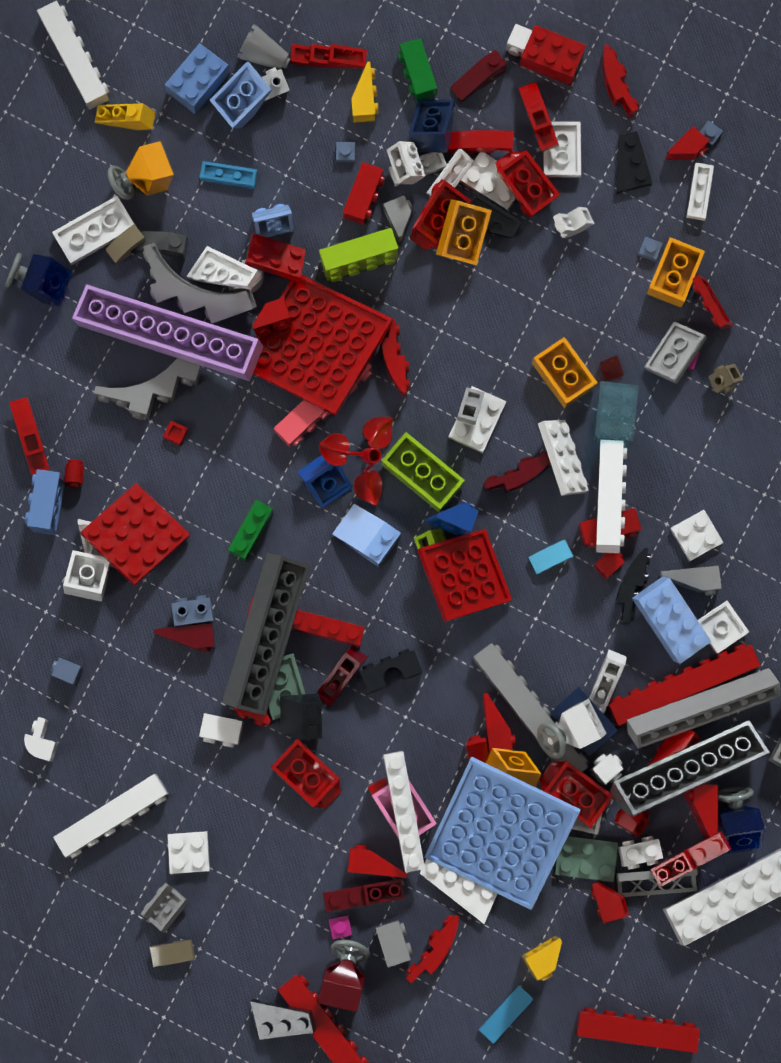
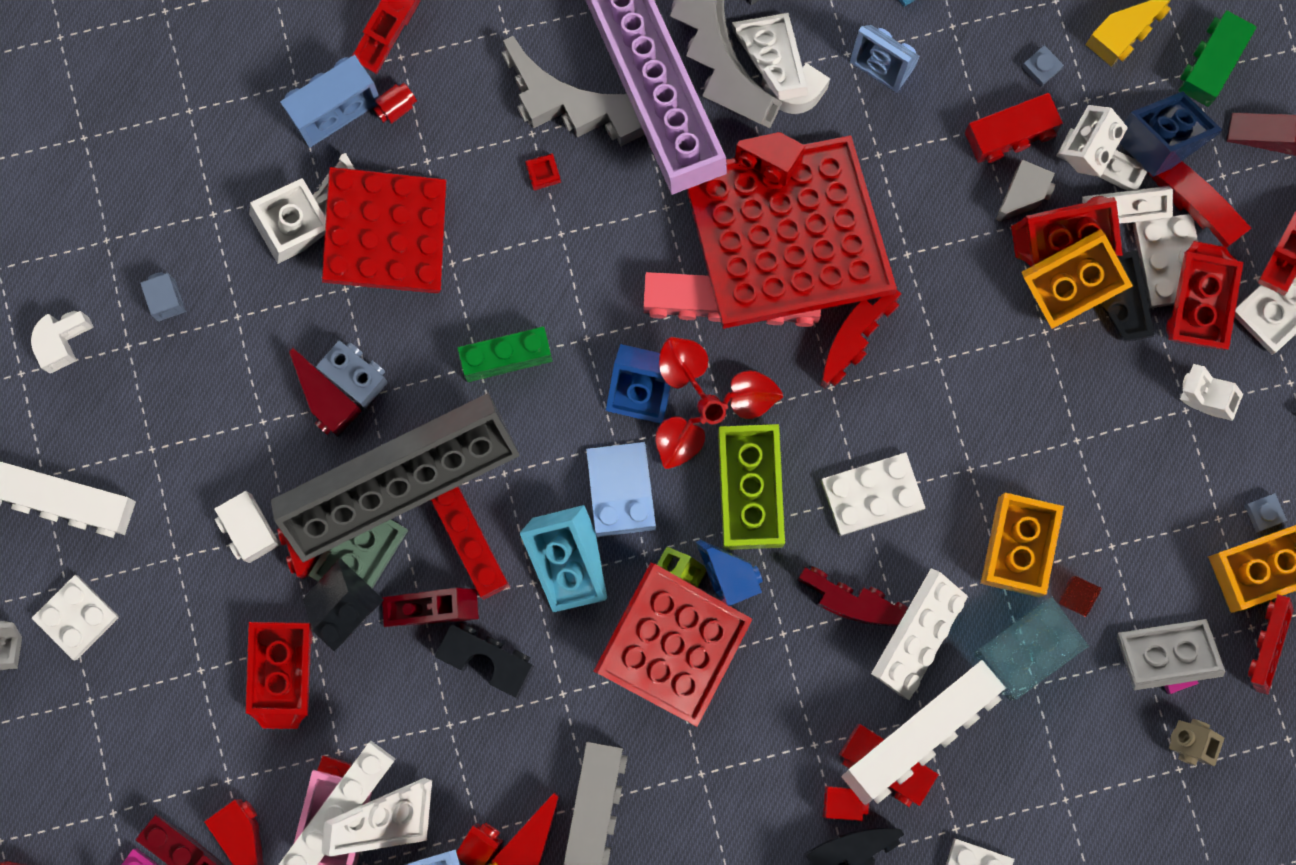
camera: 50 degrees right, 0 degrees up
(275, 257) = (844, 96): red plate -> none
(359, 254) = (936, 186): lime brick -> none
(377, 589) = (566, 558): none -> medium azure slope
(425, 785) = (381, 823): none -> white wing
(470, 406) = (878, 471): light grey brick -> none
(550, 556) = (790, 726): medium azure slope -> none

